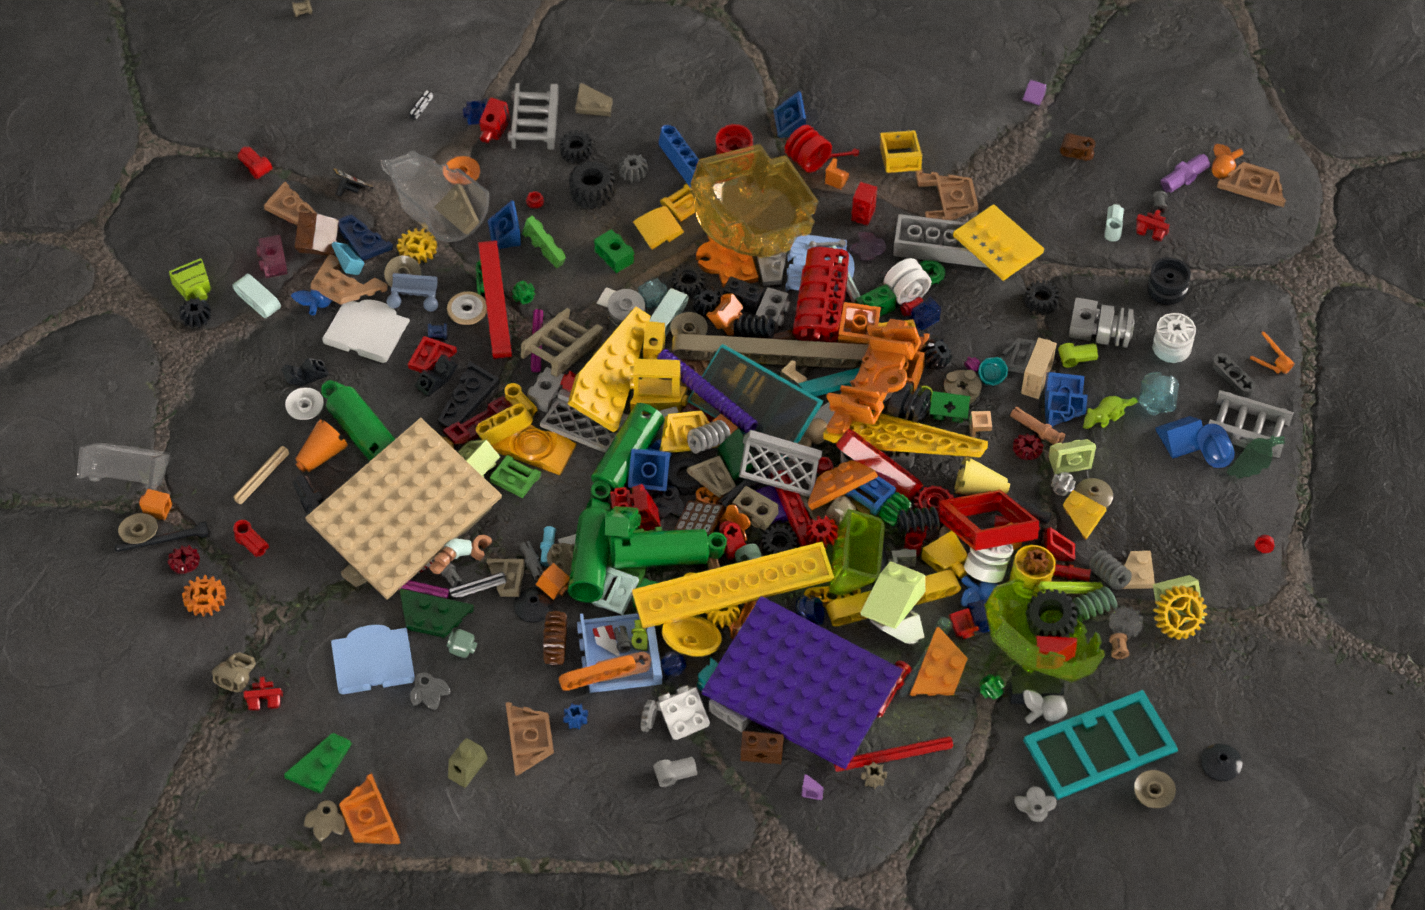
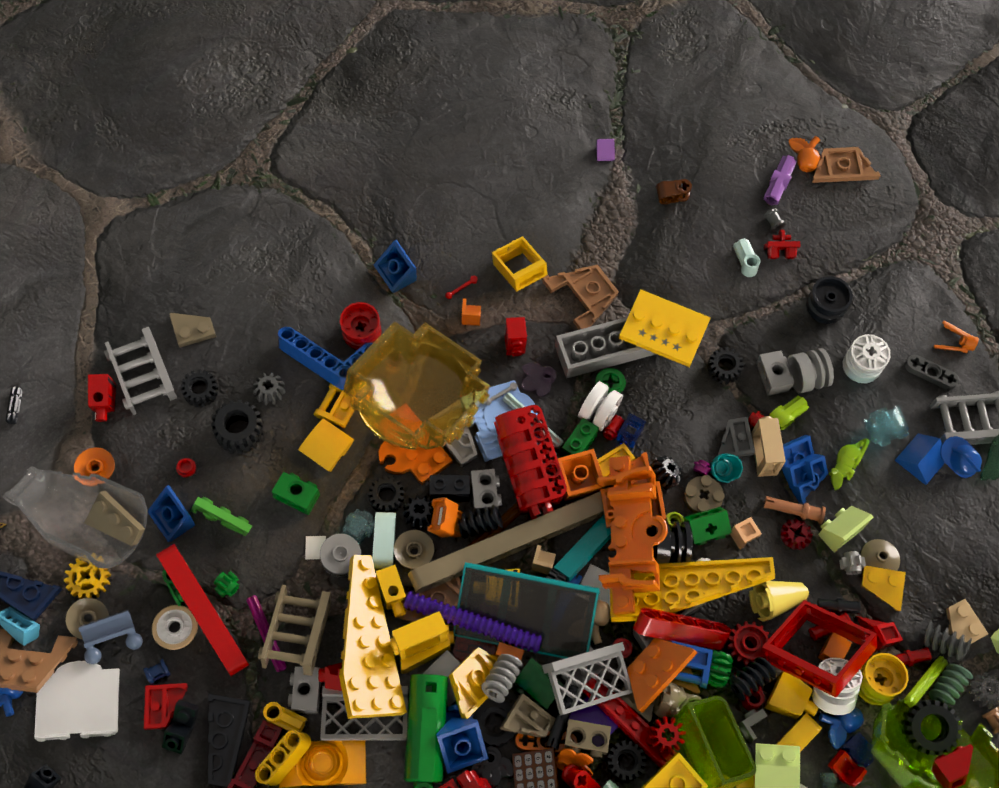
camera: 30 degrees left, 10 degrees up
(474, 111) = (76, 390): clear blue window -> none
(808, 148) = (429, 296): red wheel -> none
(1035, 561) = (887, 673): dark orange gear -> none

